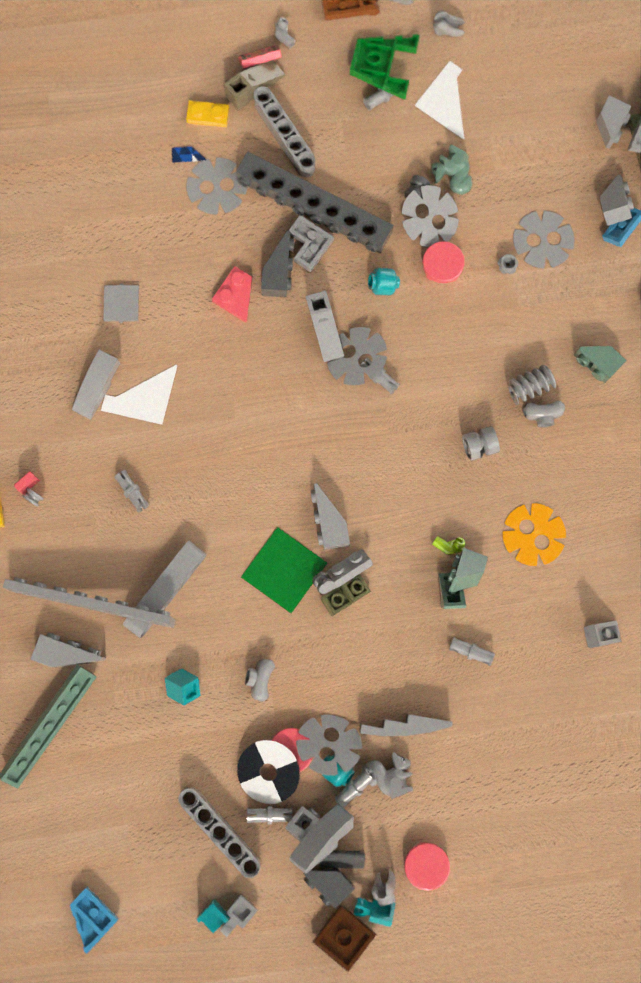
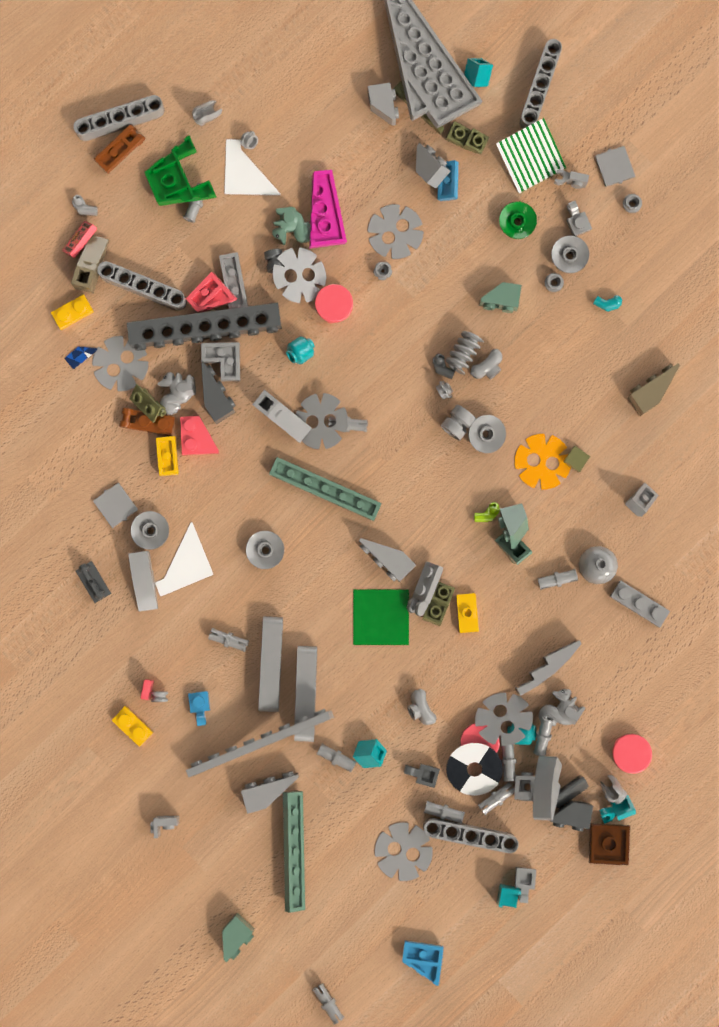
camera: 30 degrees left, 5 degrees up
(51, 354) = (93, 581): none -> dark grey hinge
(63, 530) = (199, 703): none -> dark azure plate
(132, 335) = (140, 528): none -> light grey dish
(149, 668) = (336, 757): none -> light grey pin
(152, 540) = (270, 664): none -> light grey beam
(165, 798) = (413, 840): none -> light grey piece
(198, 291) = (167, 456): none -> yellow plate
(203, 251) = (162, 425): none -> dark orange plate
(211, 792) = (444, 812): none -> light grey pin
(213, 233) = (146, 403): none -> olive hinge
(219, 744) = (425, 775): none -> dark grey plate
(223, 423) = (258, 542): none -> light grey dish
(250, 244) = (180, 391): none -> light grey animal
(304, 789) = (508, 763): none -> light grey pin
(317, 419) = (325, 489): none -> sand green plate
(339, 179) = (210, 294): none -> coral wing
(365, 622) = (467, 613): none -> yellow plate
(368, 181) = (233, 279): none -> light grey plate
(469, 73) = (249, 140): none -> light grey plate
(489, 406) = (444, 390): none -> light grey plate
(491, 181) = (326, 217): none -> dark pink wing
(500, 383) = (440, 366): none -> dark grey arm
(510, 474) = (495, 437): none -> light grey dish
(519, 665) = (598, 565): none -> light grey cylinder
(533, 730) = (639, 604): none -> light grey plate
(567, 553) = (576, 459): none -> olive tile

